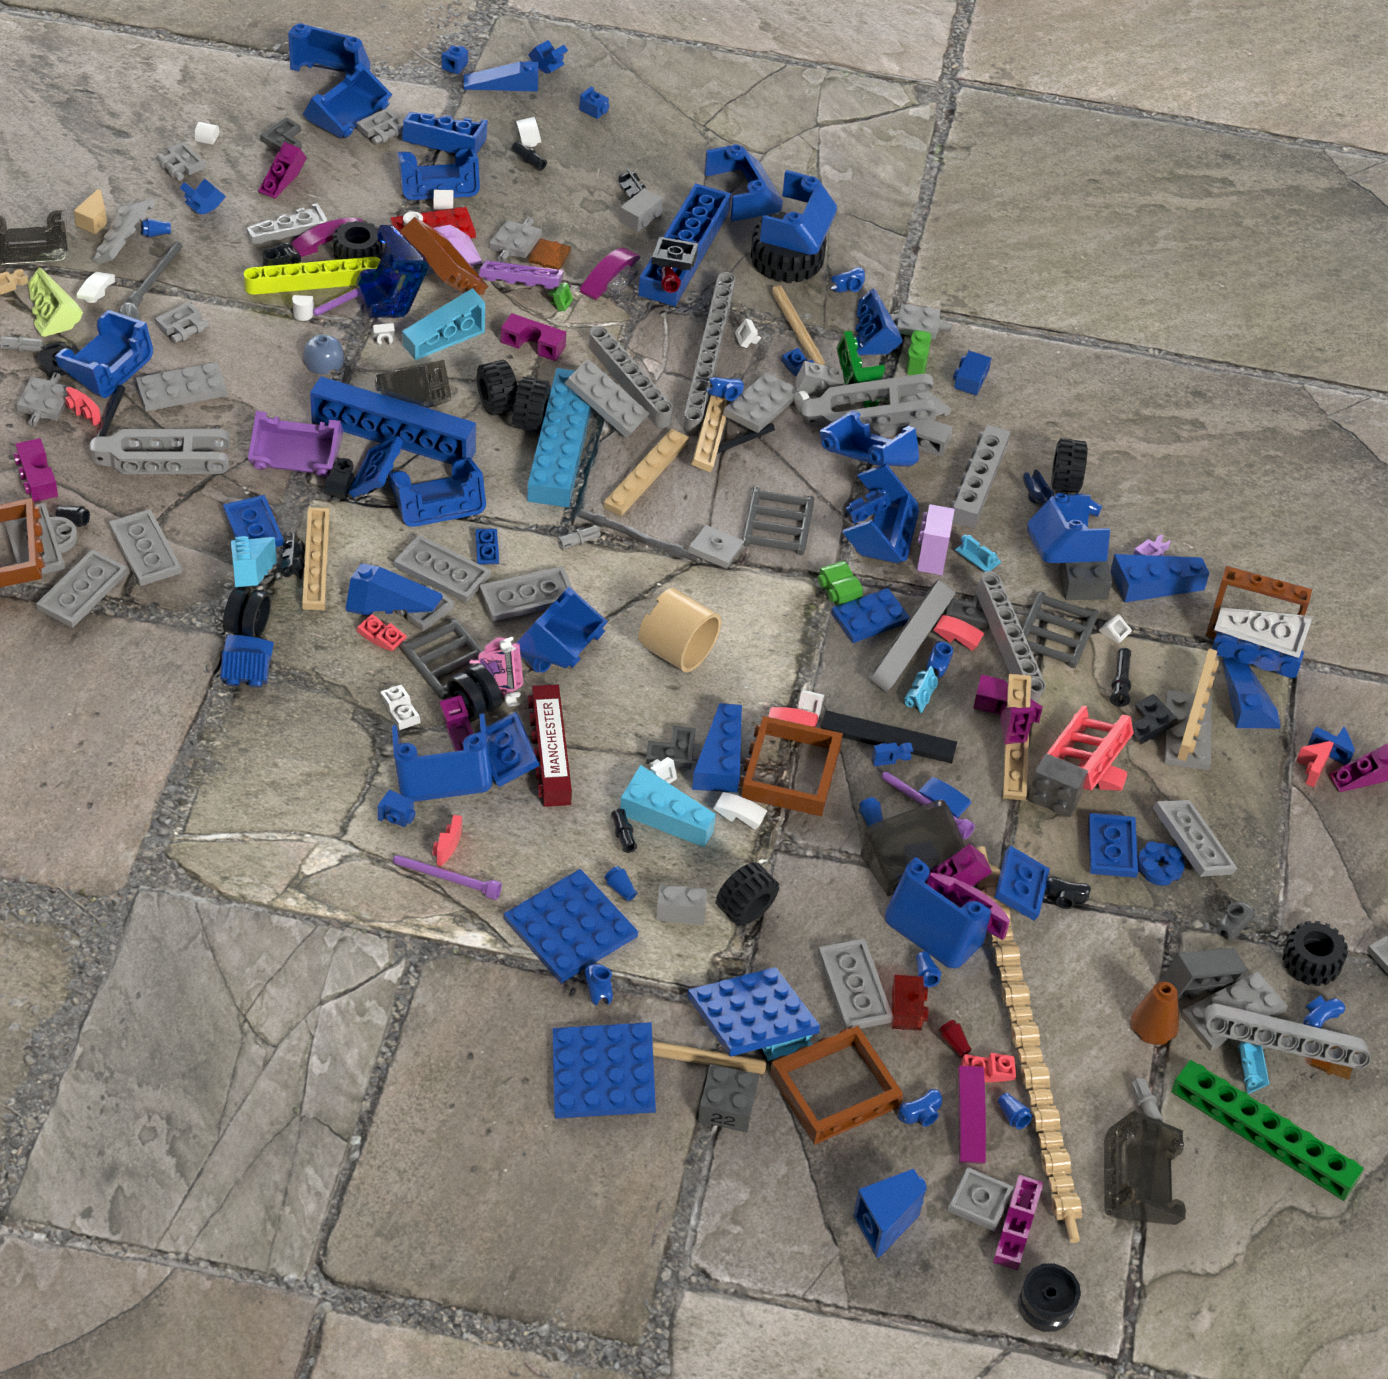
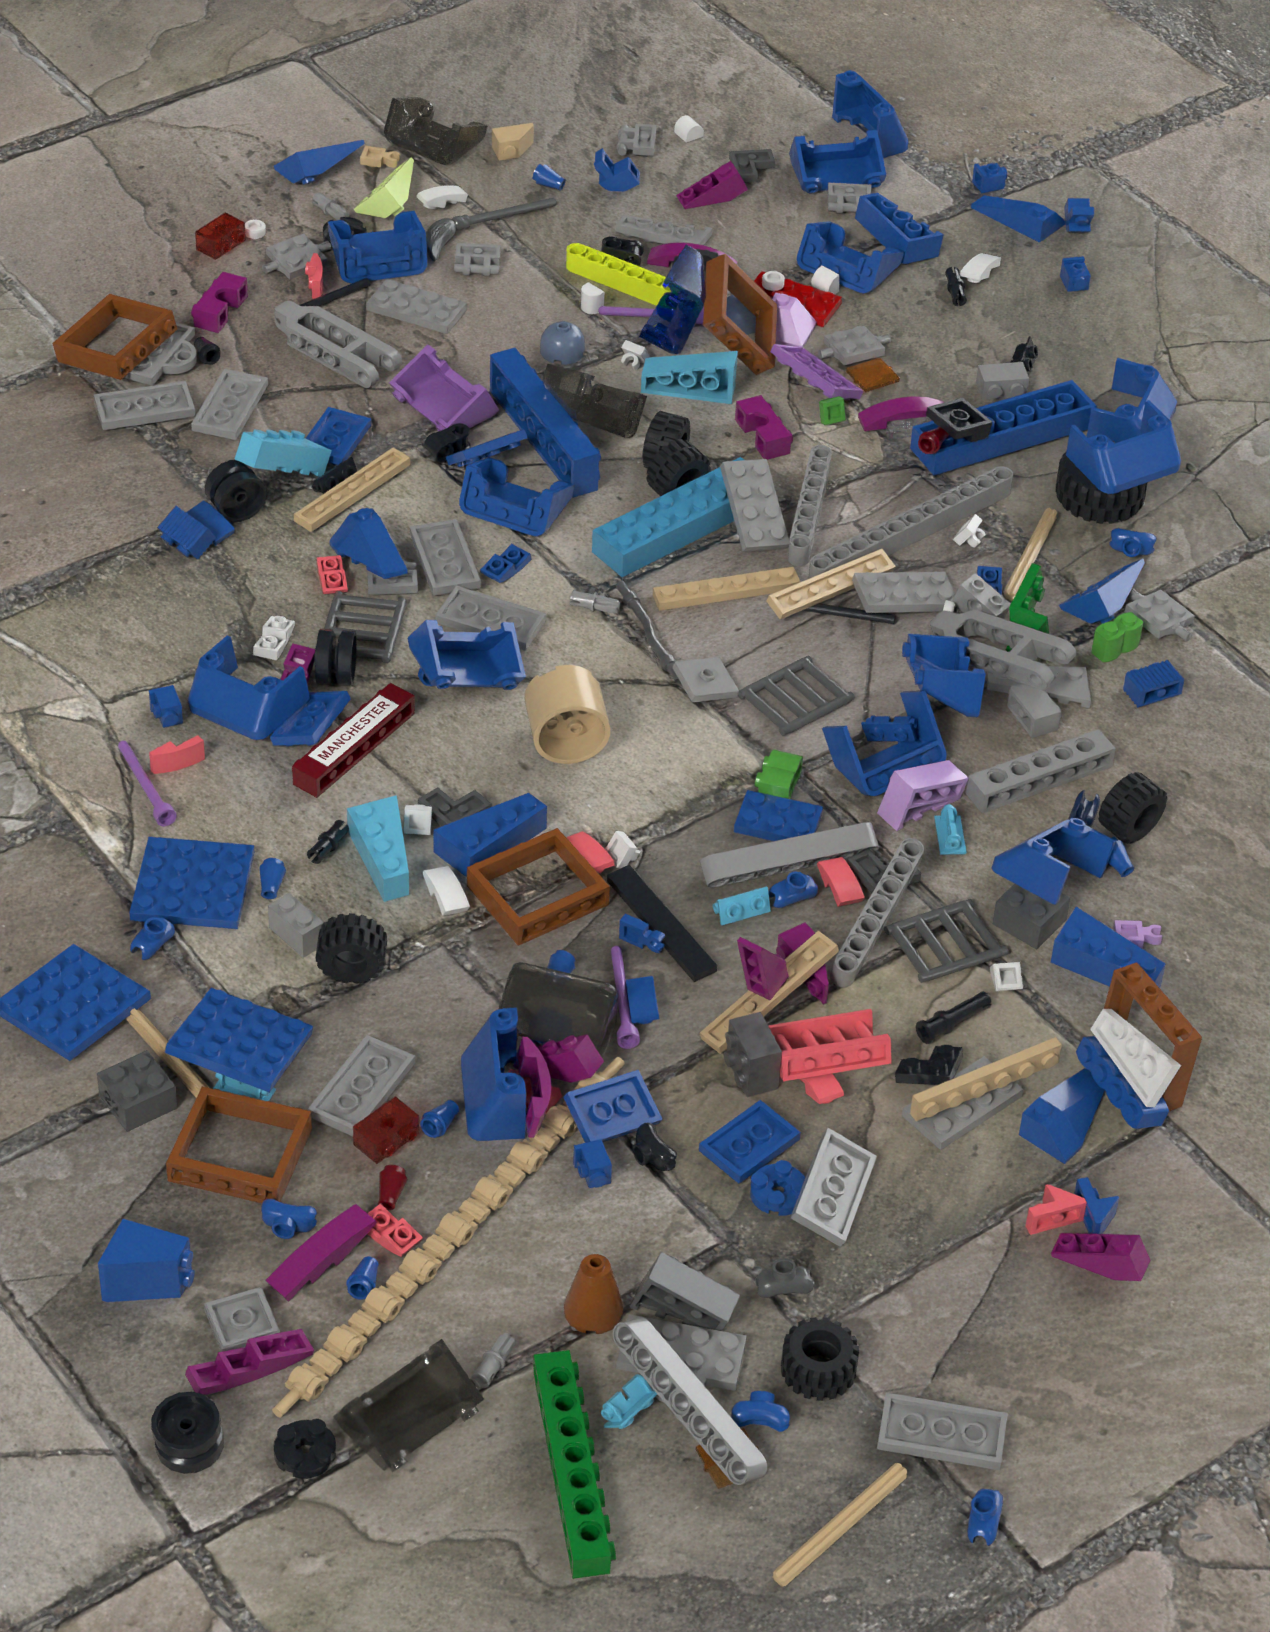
camera: 45 degrees right, 5 degrees down
(121, 229) = (519, 162): light grey wing -> none
(505, 665) = (380, 654): torso -> none
(726, 388) = (876, 557): blue piece -> none
(1050, 928) = (593, 1163): none -> blue brick
(1117, 1236) = (301, 1433): none -> black plate

